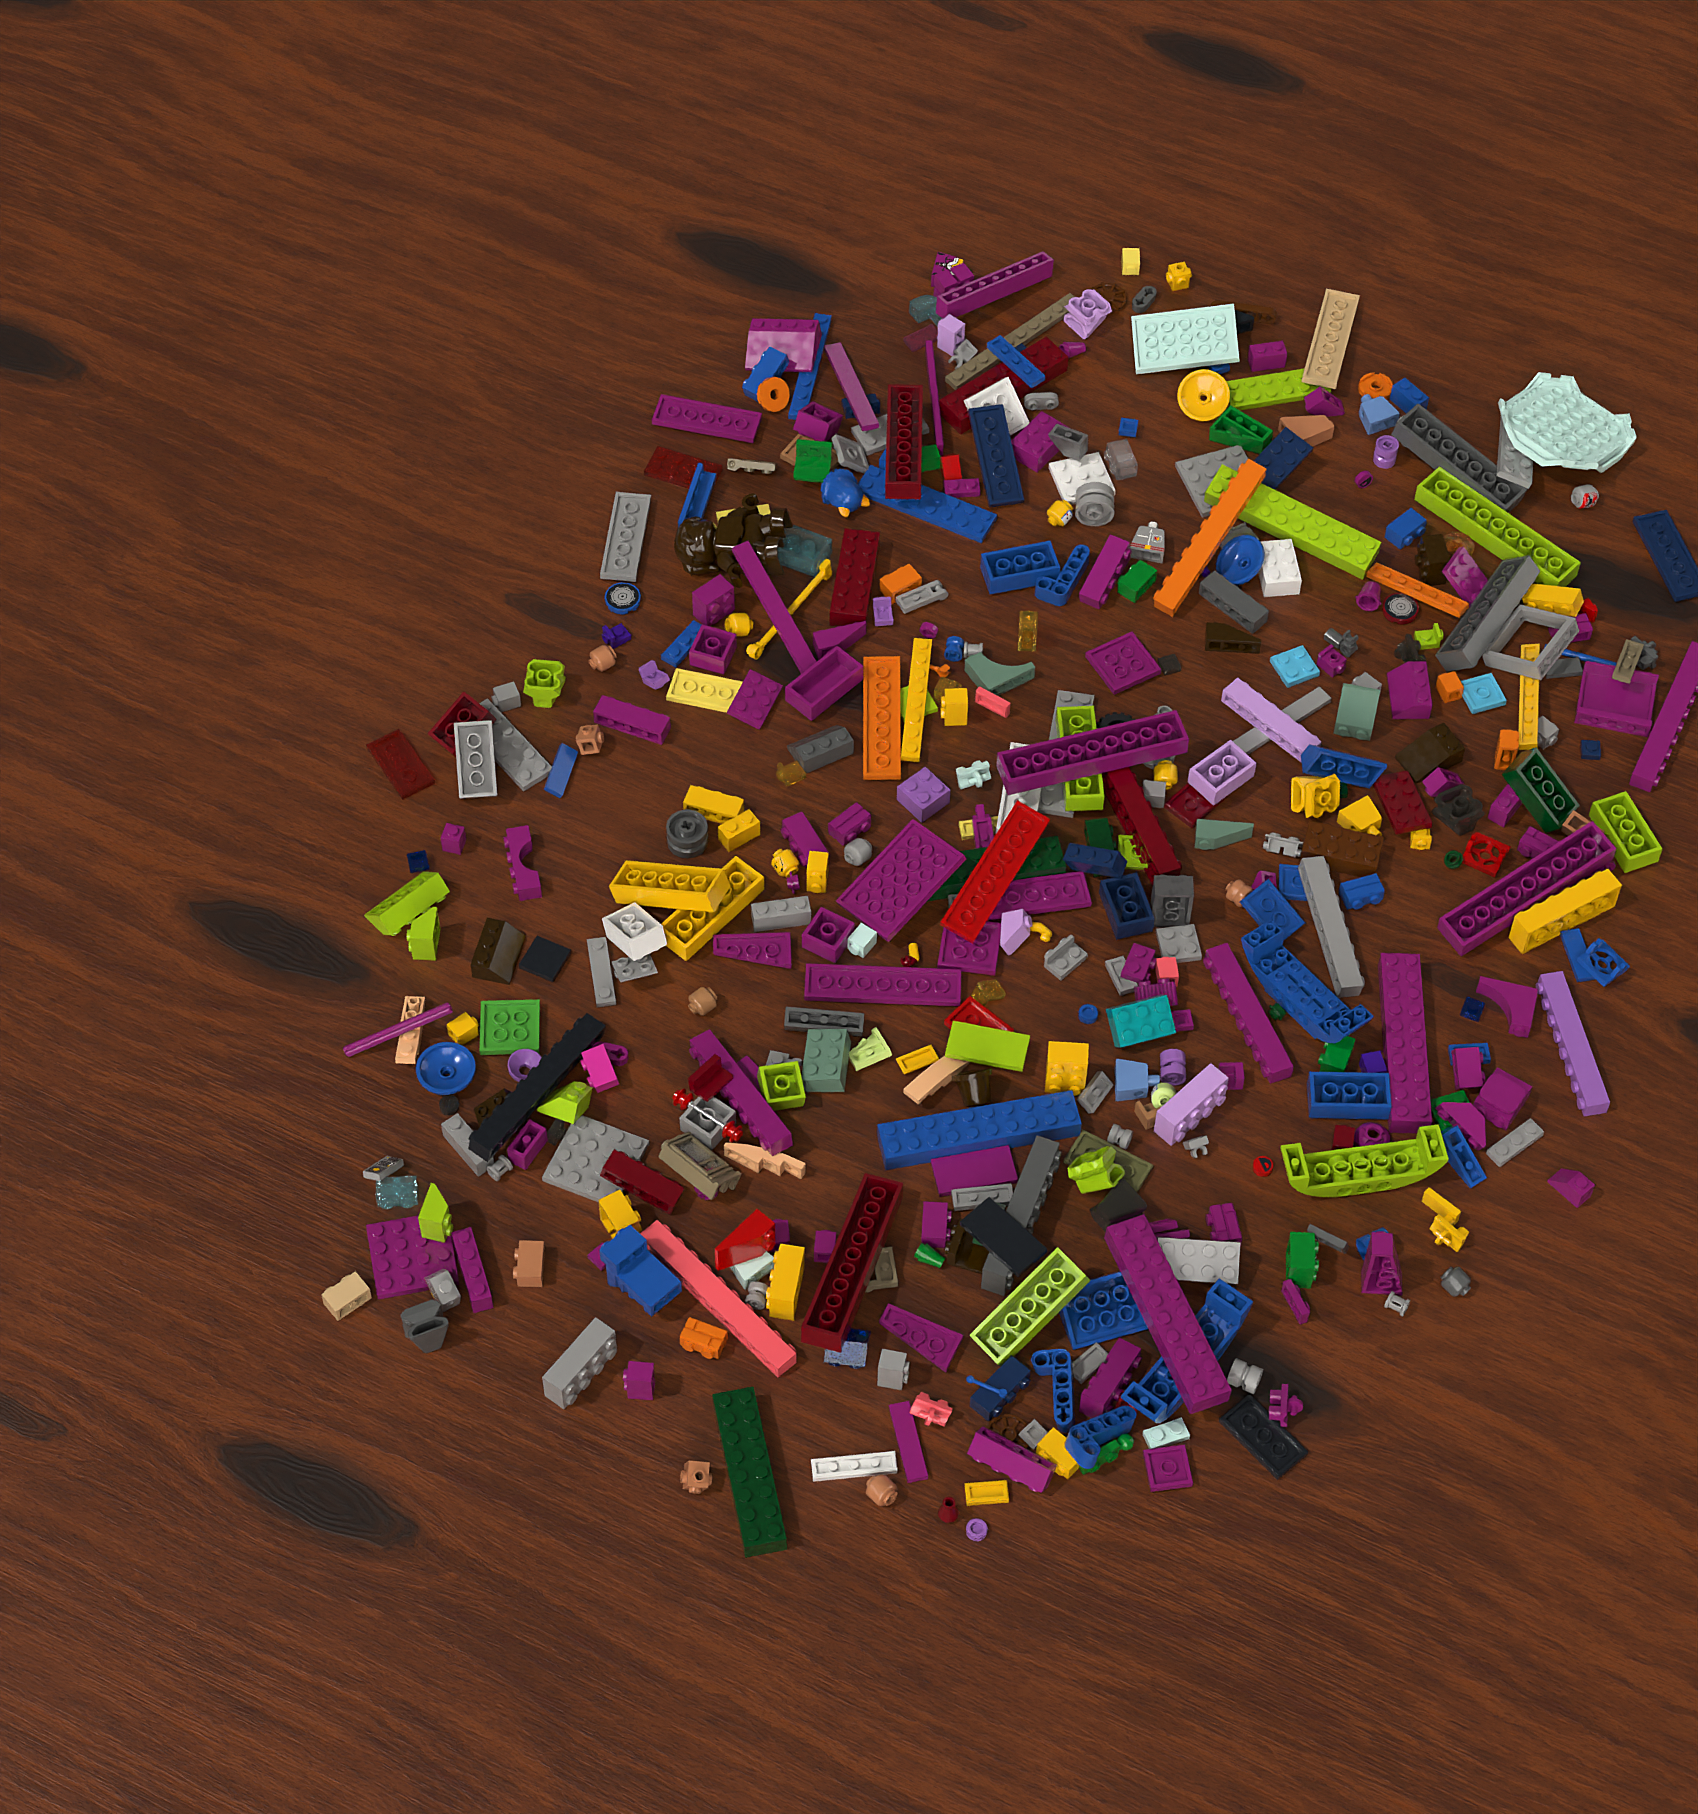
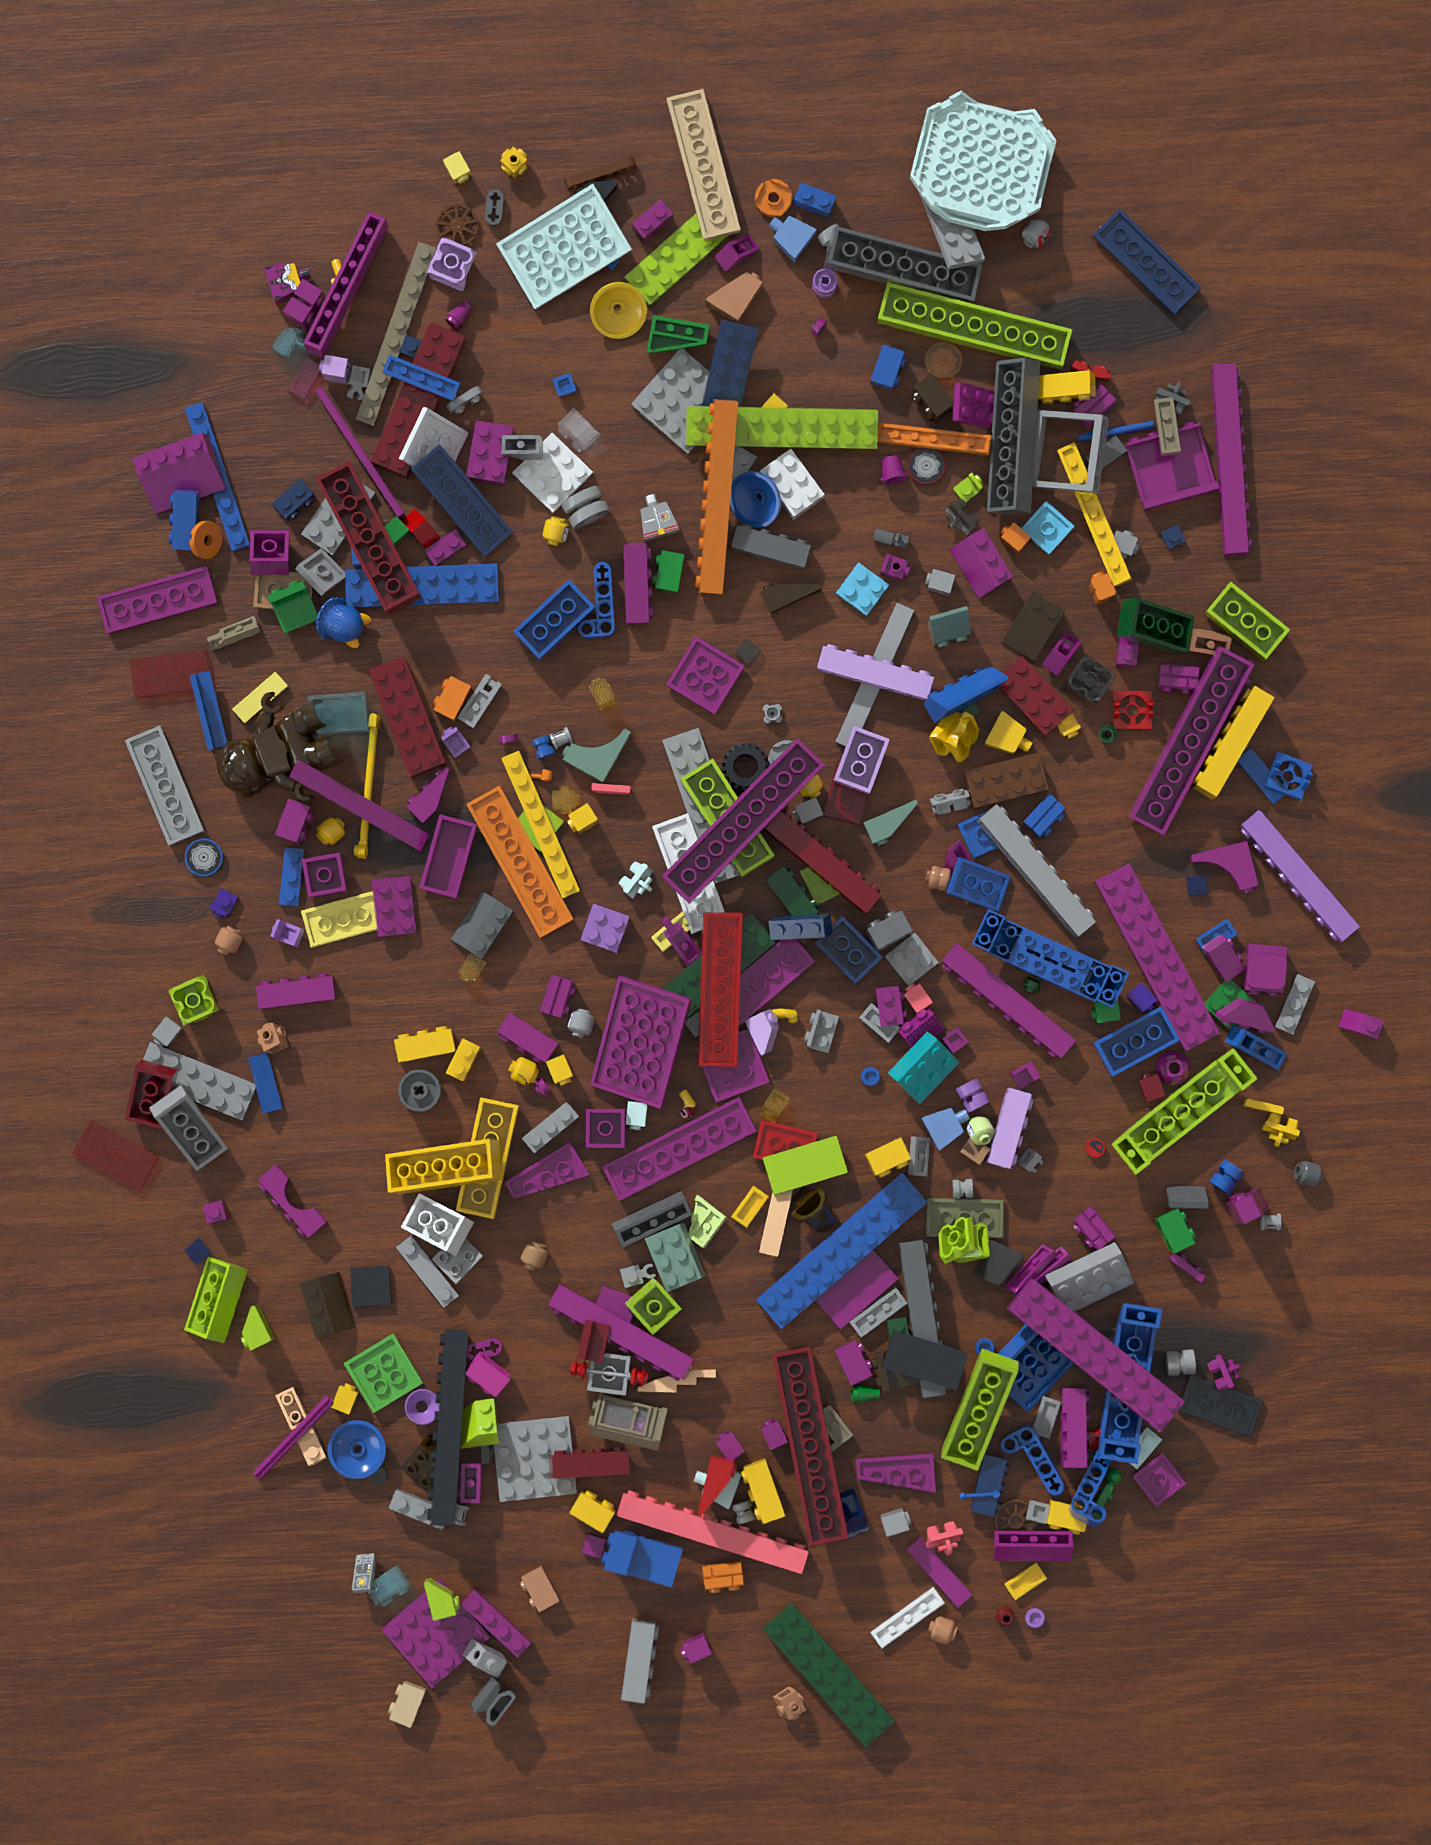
camera: 25 degrees left, 30 degrees up
(851, 386) = (275, 488): magenta tile -> none

